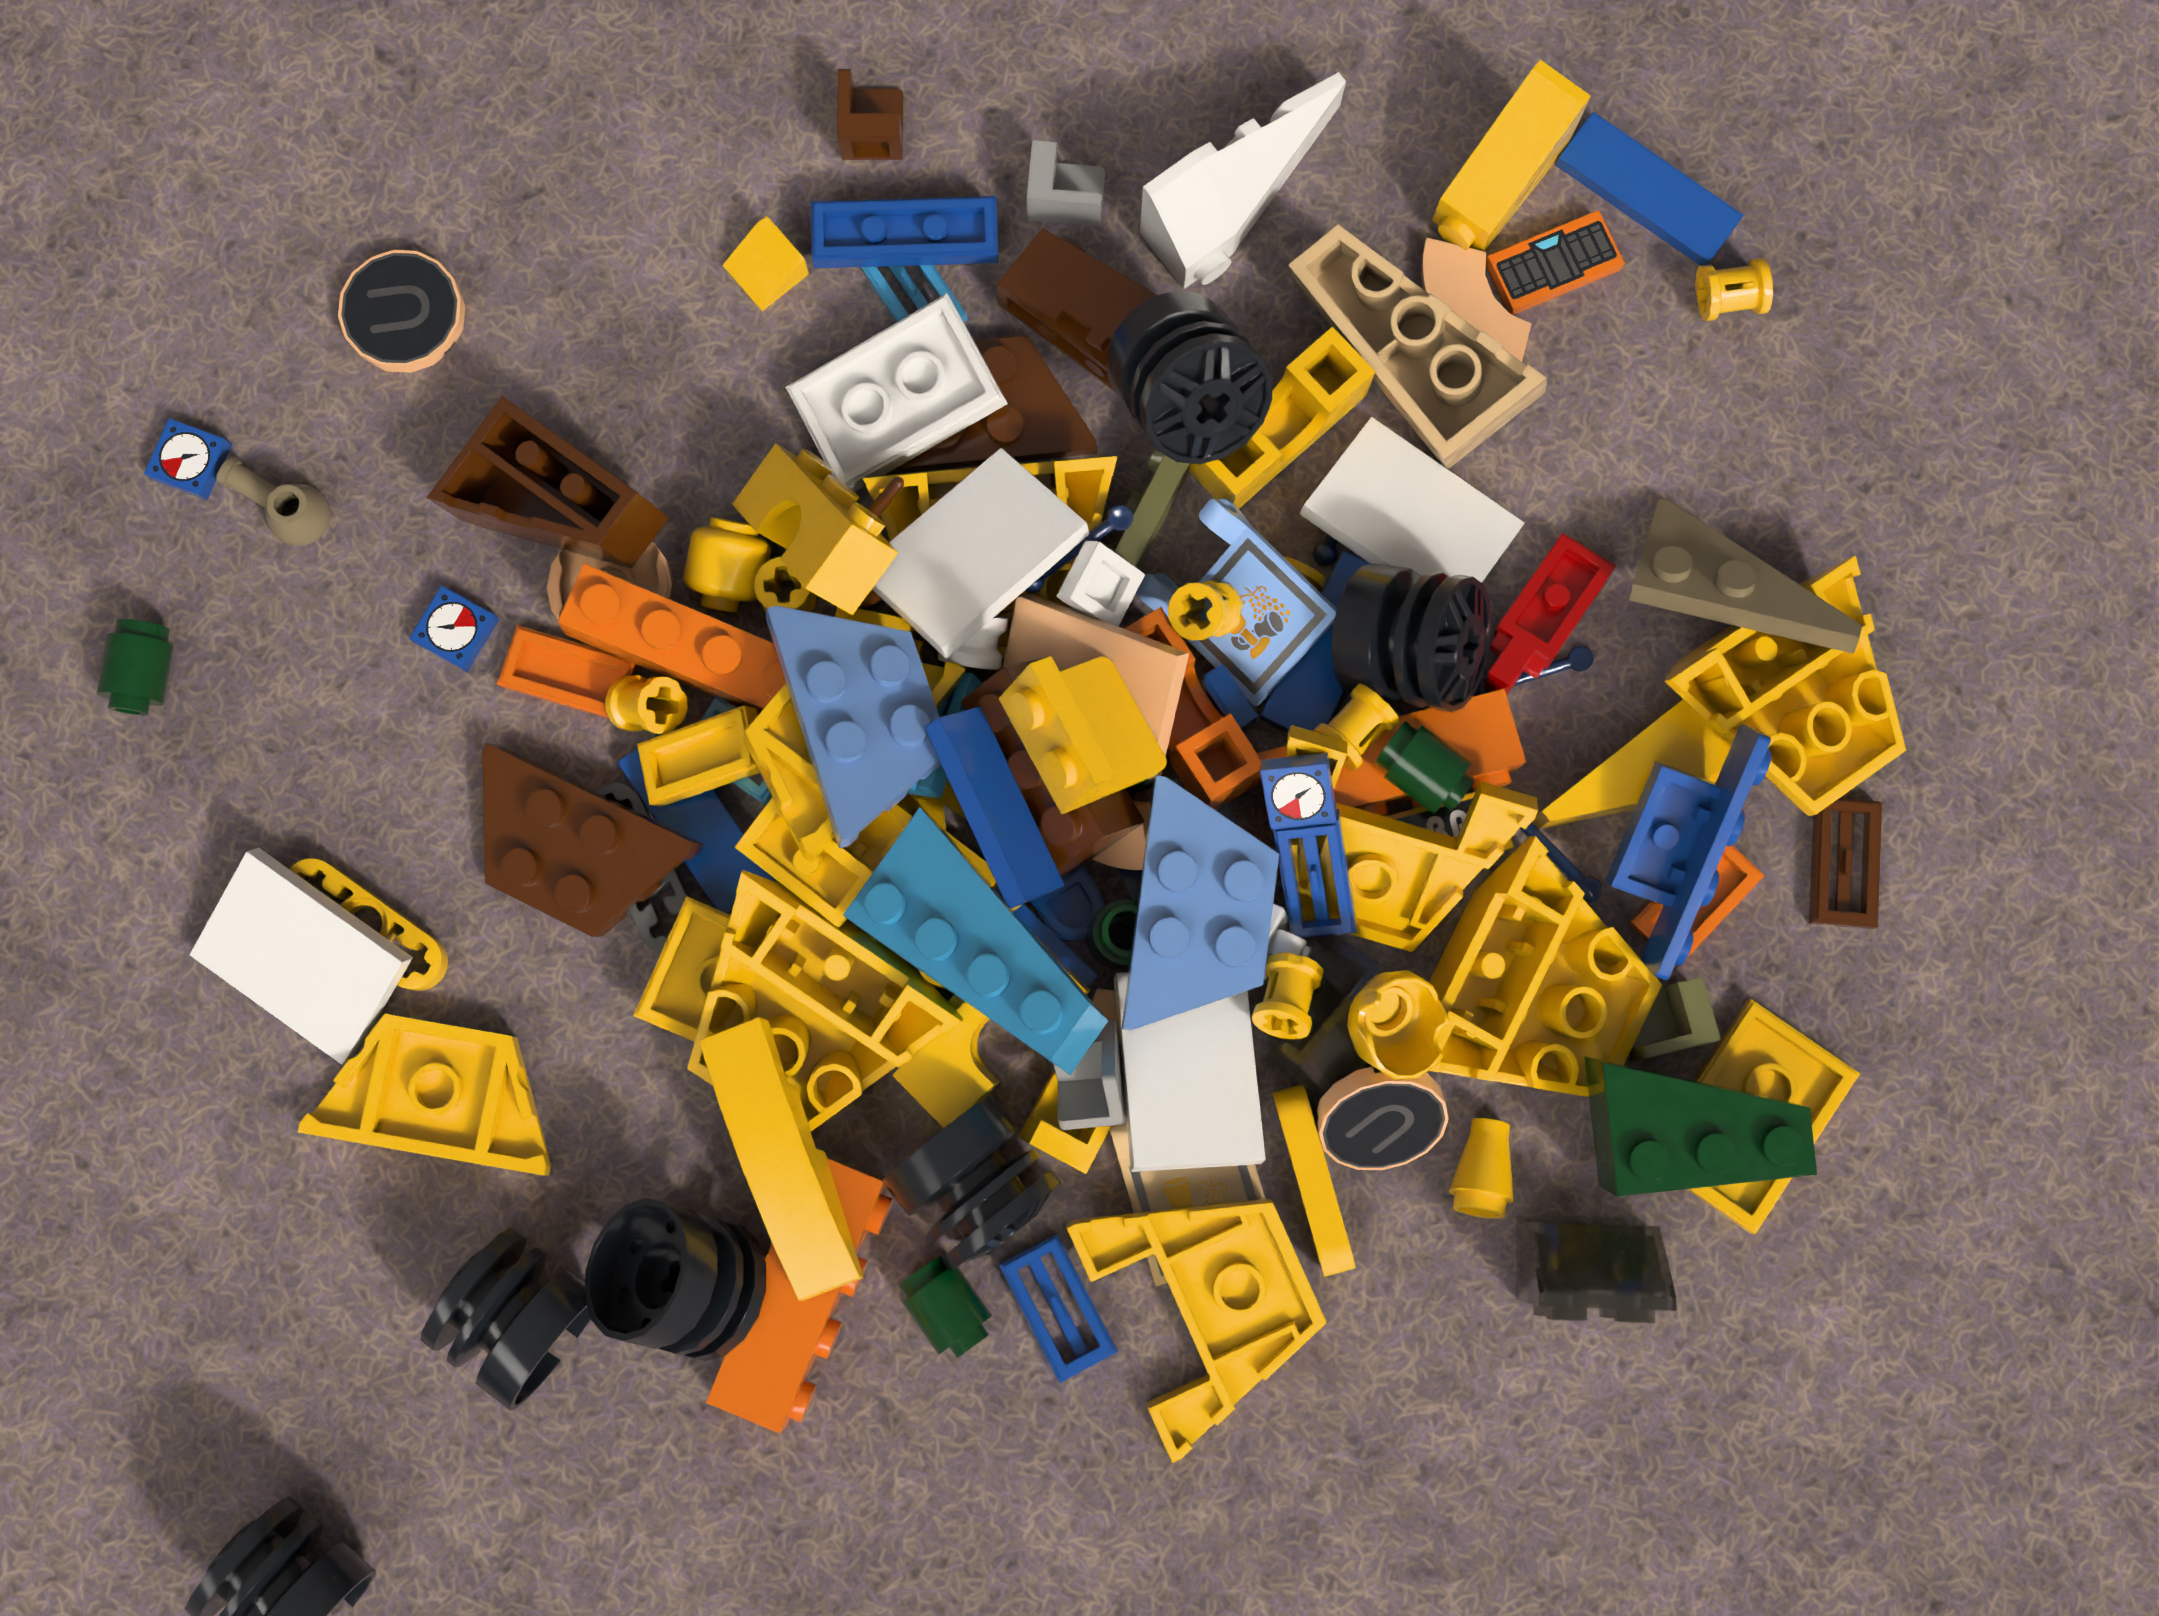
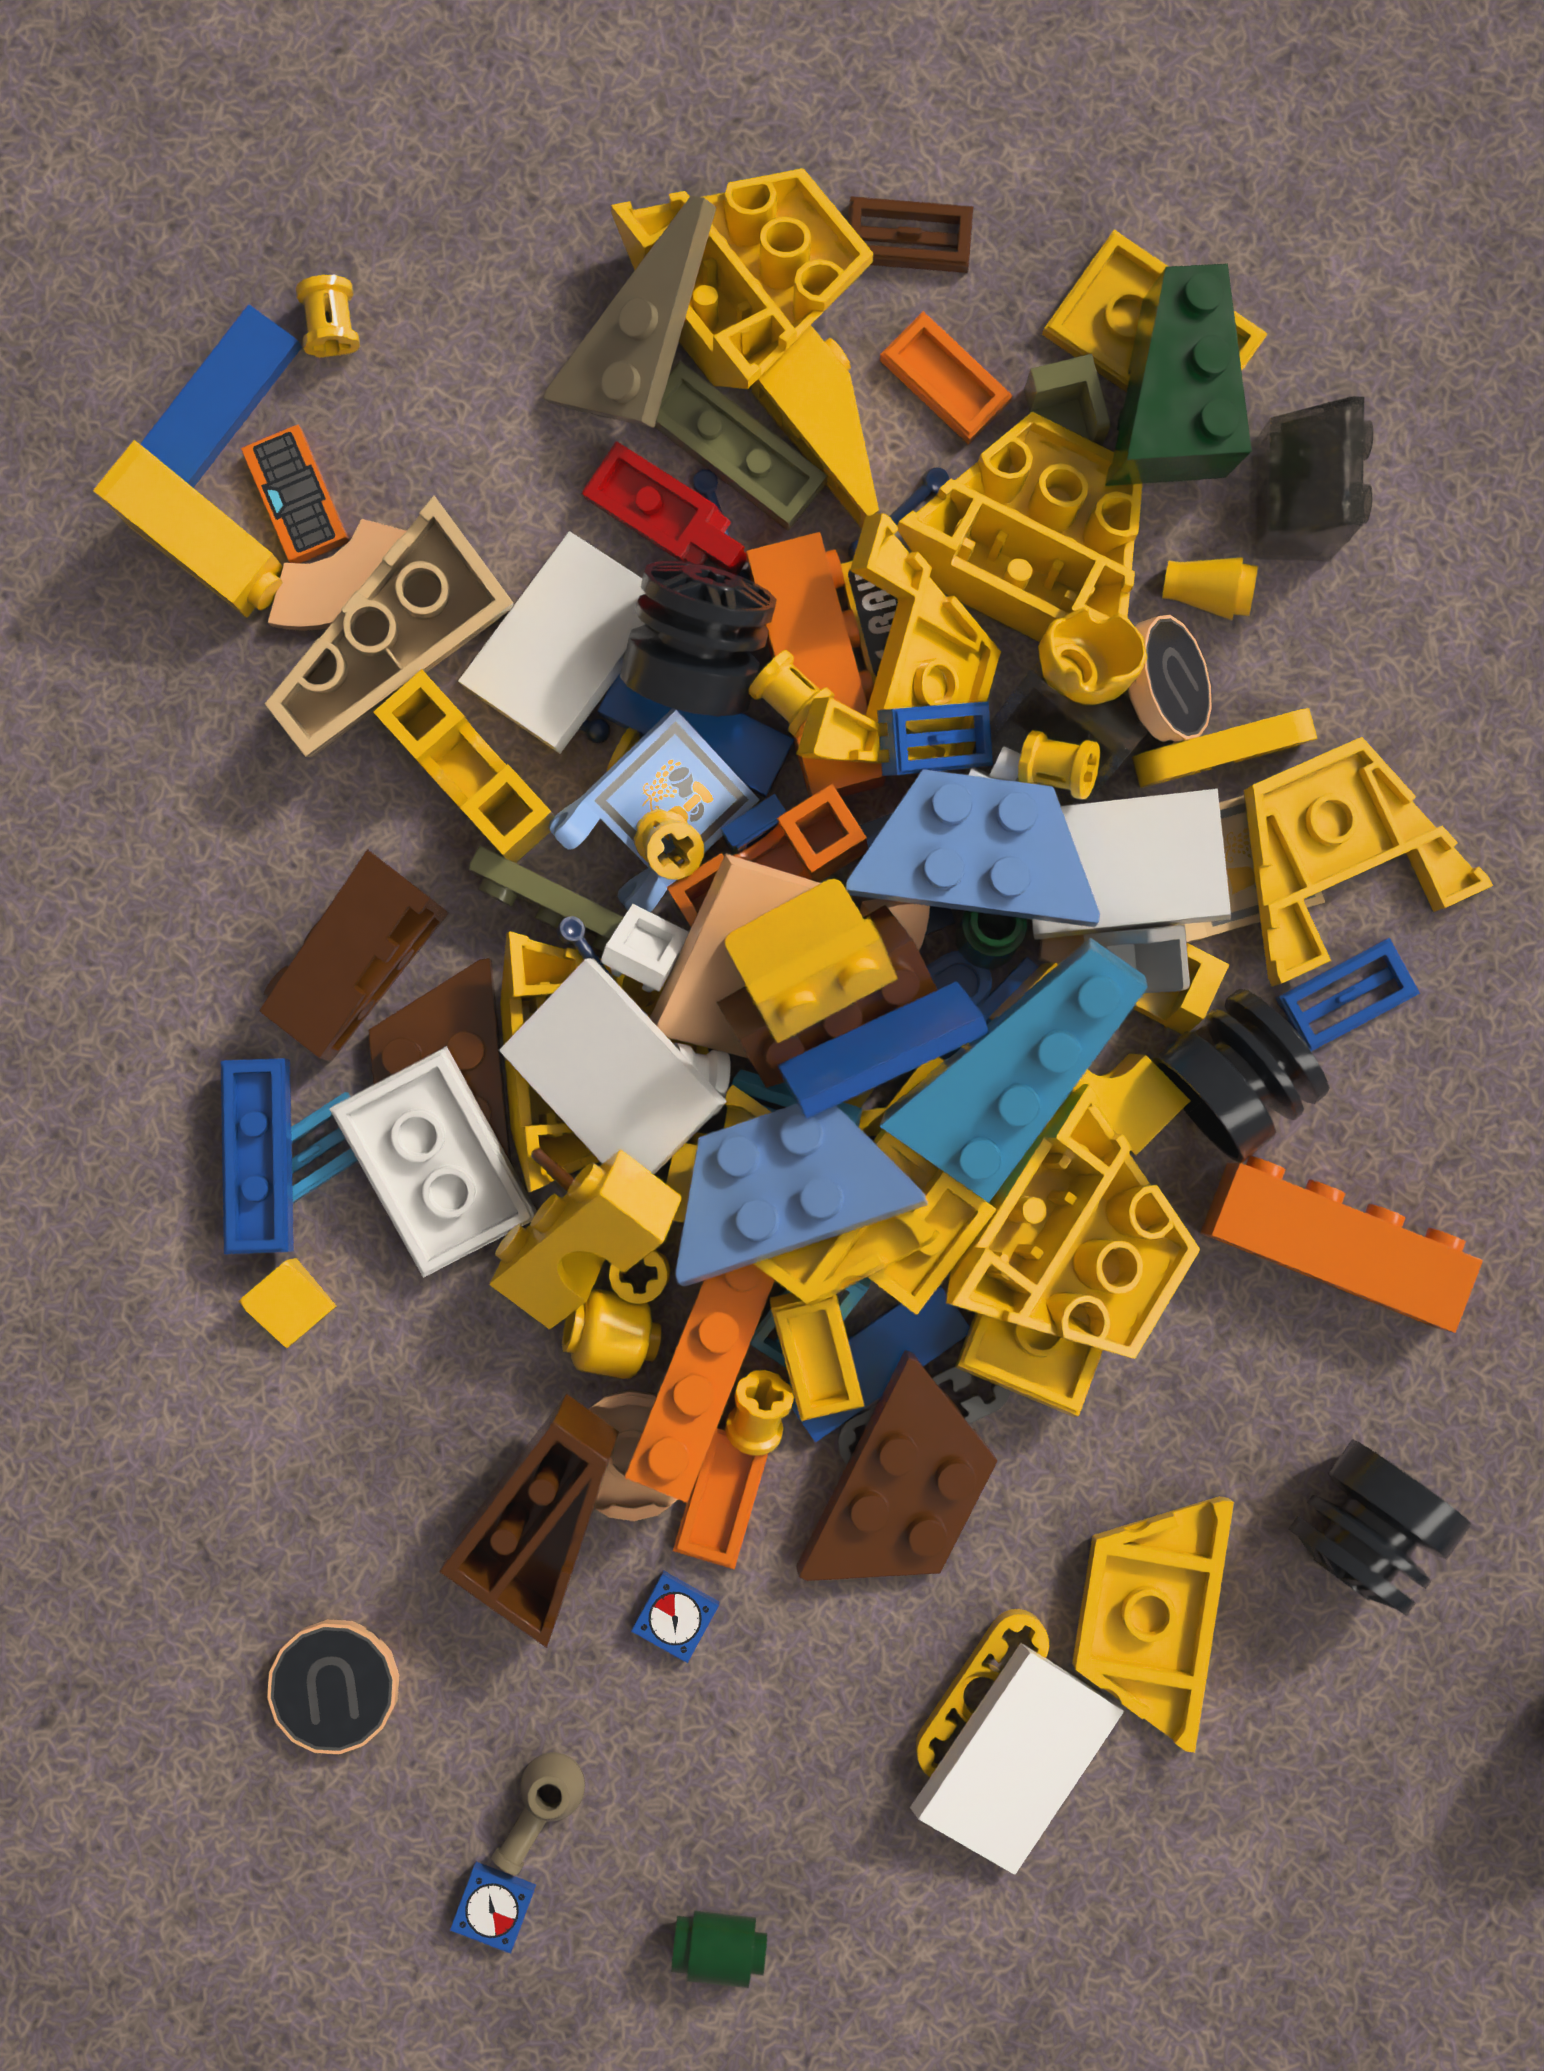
camera: 90 degrees left, 5 degrees up
(675, 1280) = (1344, 1365): black wheel -> none
(781, 1160) = (1226, 1262): yellow slope -> none
(869, 121) = (131, 1195): reddish brown panel -> none
(945, 1307) = (1354, 1104): dark green brick -> none
(1063, 190) = (210, 991): light grey panel -> none
(1189, 377) = (434, 852): black wheel -> none
(1213, 198) = (231, 837): white wedge -> none
(1298, 790) = (863, 746): tile -> none
(1426, 767) = (832, 625): dark green brick -> none
(1615, 686) = (737, 447): none -> olive plate
(1679, 840) = (900, 378): blue bracket -> none

